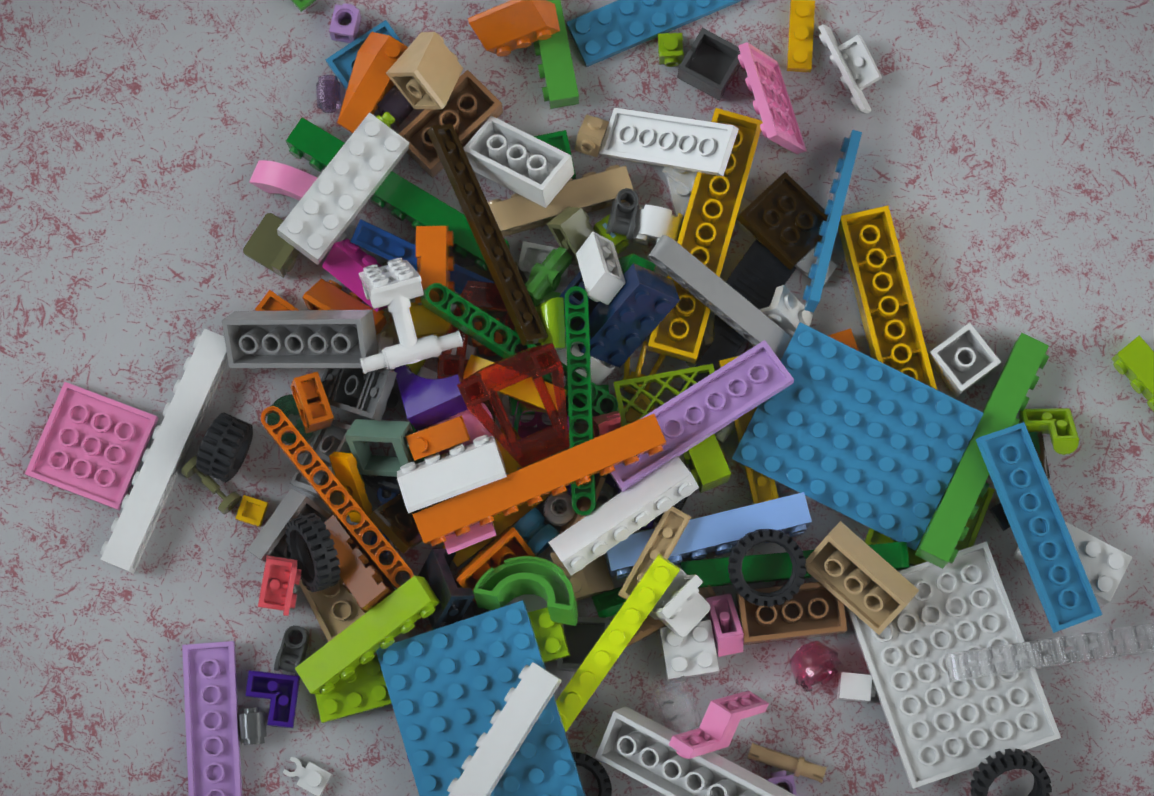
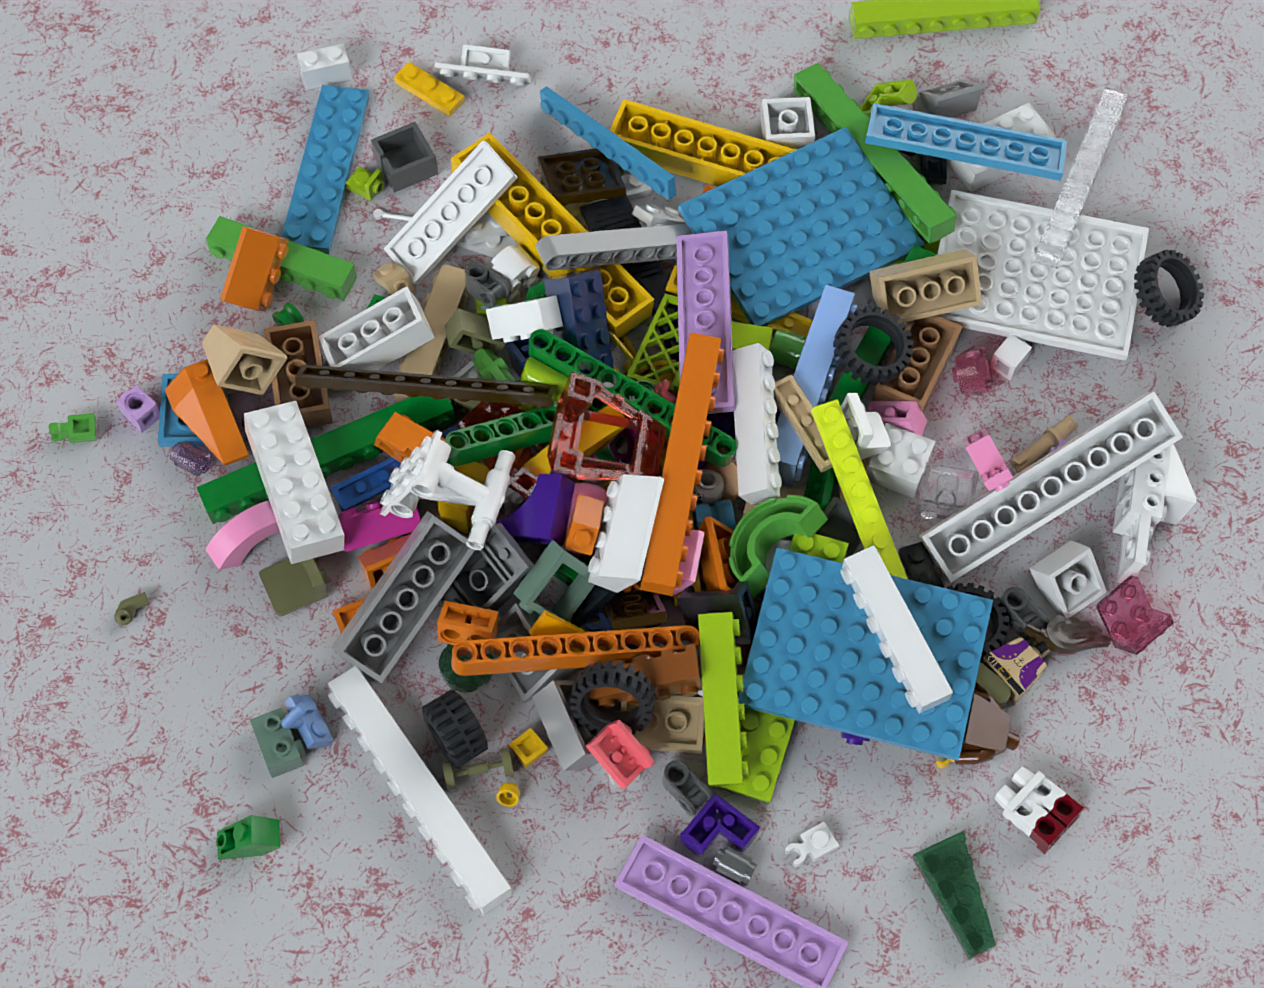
camera: 60 degrees left, 15 degrees down
(54, 354) = (248, 838): none -> green slope
(91, 446) = (362, 858): bright pink plate -> none
(140, 323) = (277, 743): none -> sand green brick
(169, 333) = (307, 719): none -> medium blue plate
(180, 137) = (128, 607): none -> olive arm
(207, 520) = (502, 794): none -> yellow hinge
(499, 78) = (287, 316): none -> green wheel
(595, 729) = (919, 564): none -> black plate
(649, 80) = (378, 214): none -> white hinge
(734, 493) = (787, 348): none -> bright green piece
(771, 98) = (472, 121): bright pink plate -> none
(1099, 482) = (952, 98): none -> light grey slope

